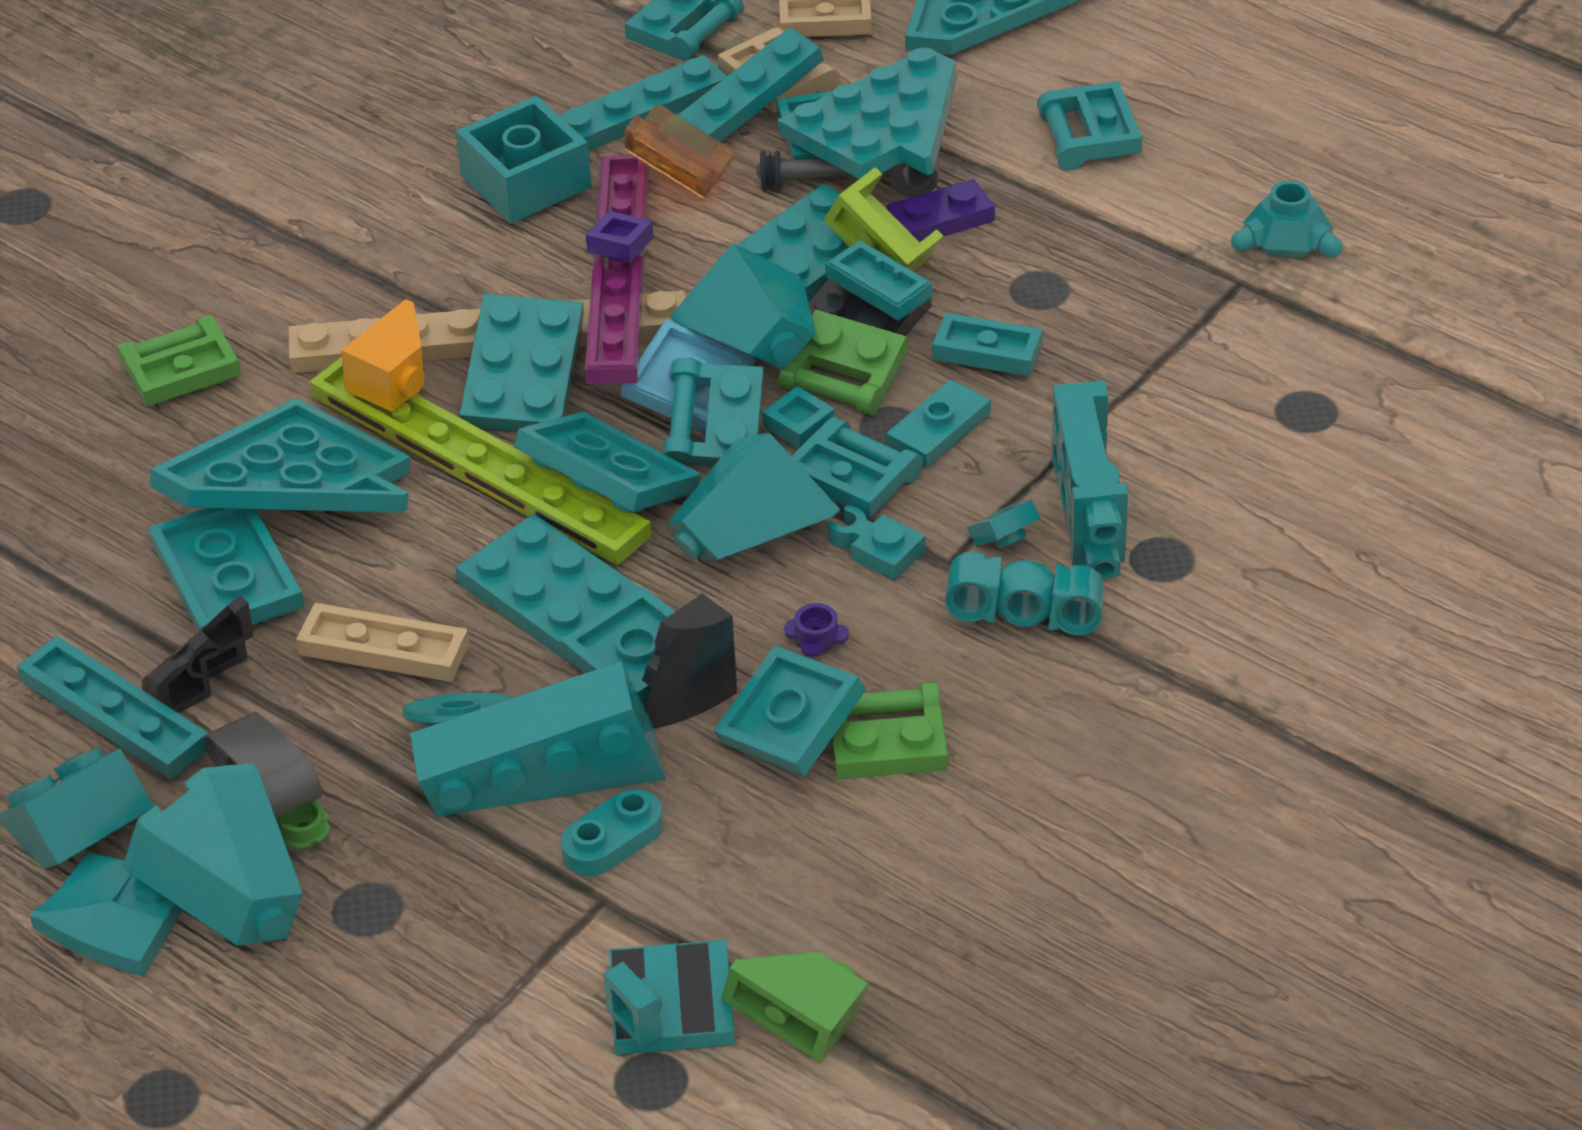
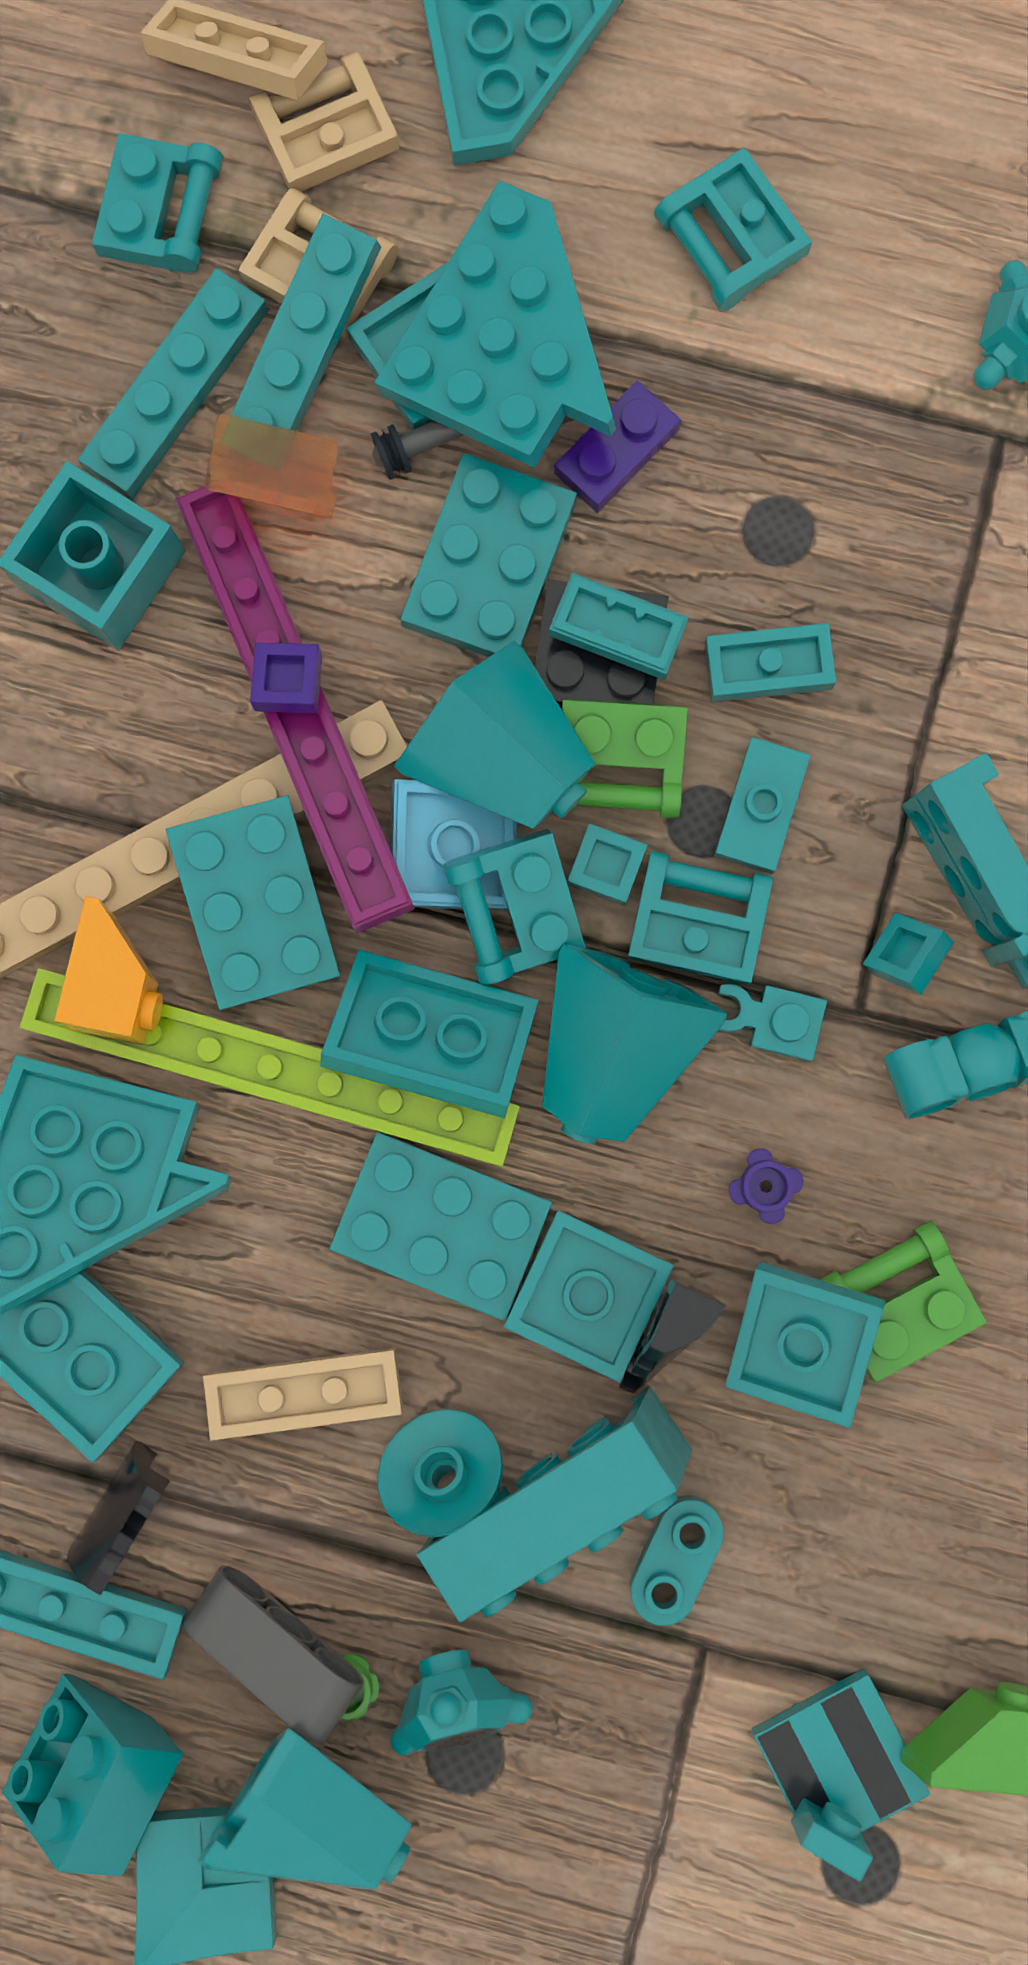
camera: 20 degrees left, 40 degrees up
(378, 847) = (455, 1706): none -> teal rock
(862, 217) = (580, 532): lime panel -> none

